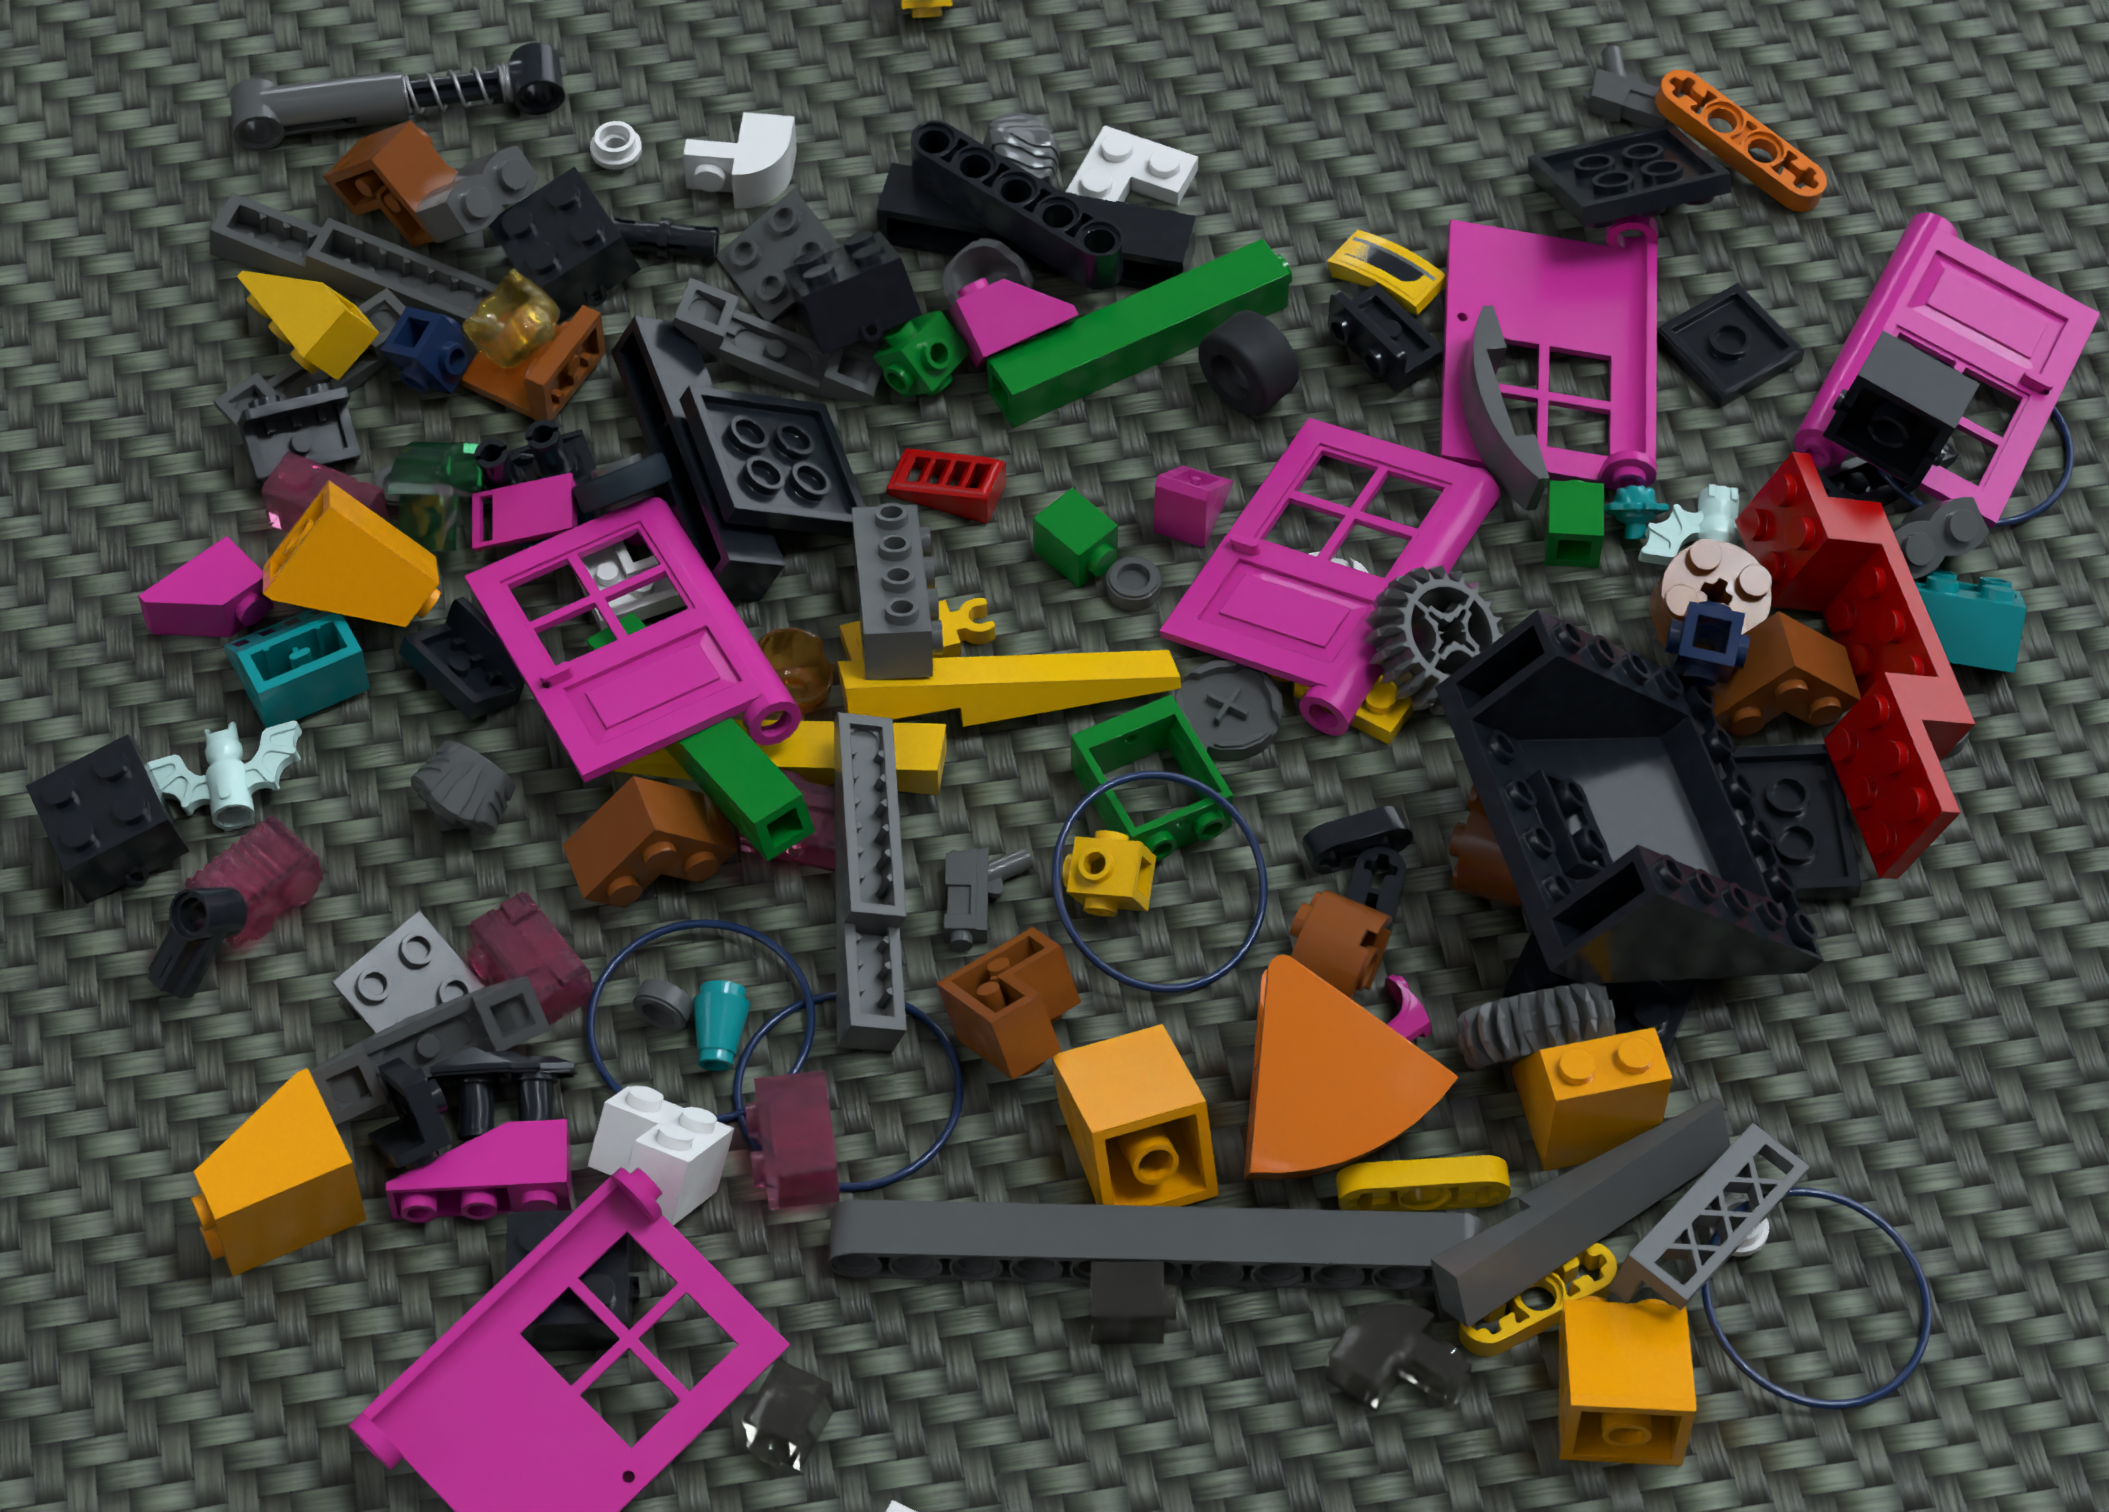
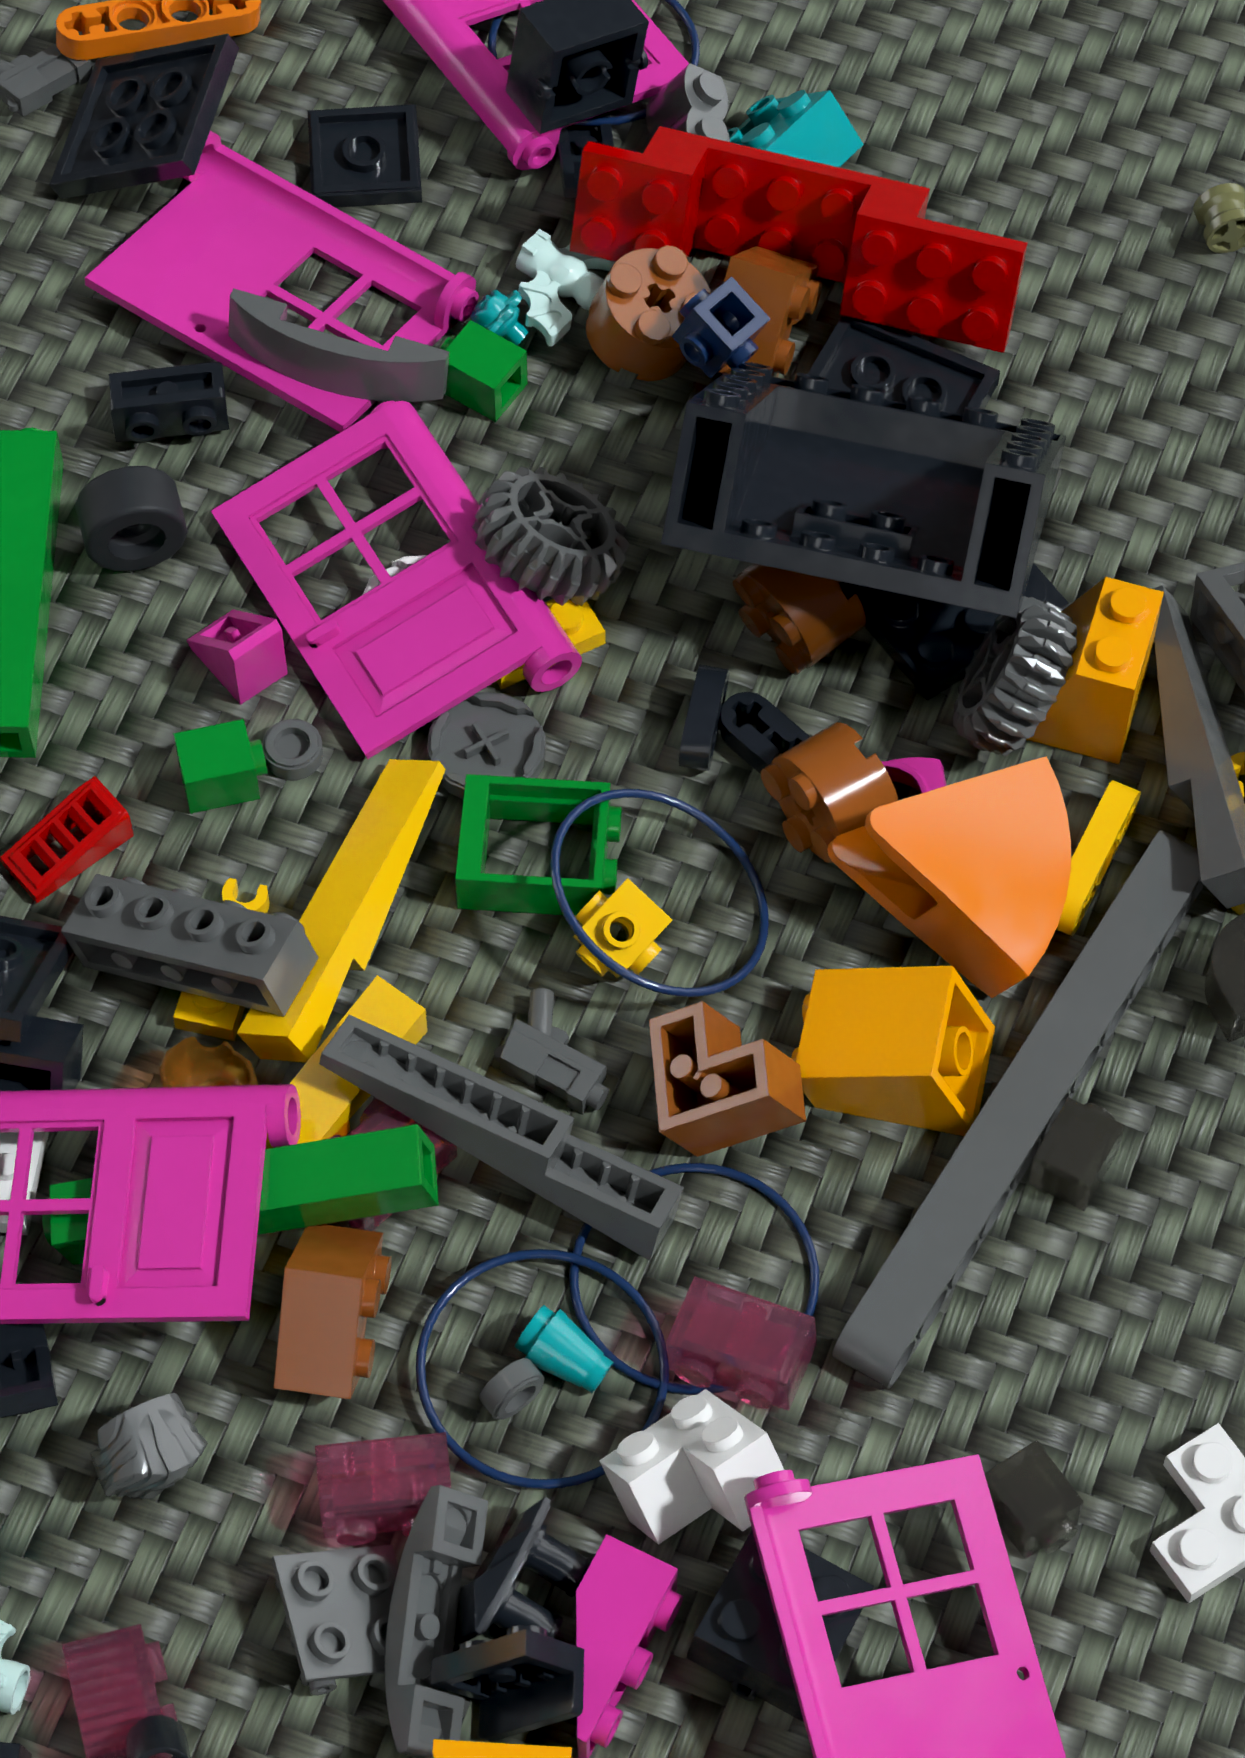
camera: 60 degrees left, 5 degrees up
(1401, 273) = (87, 358): yellow slope -> none

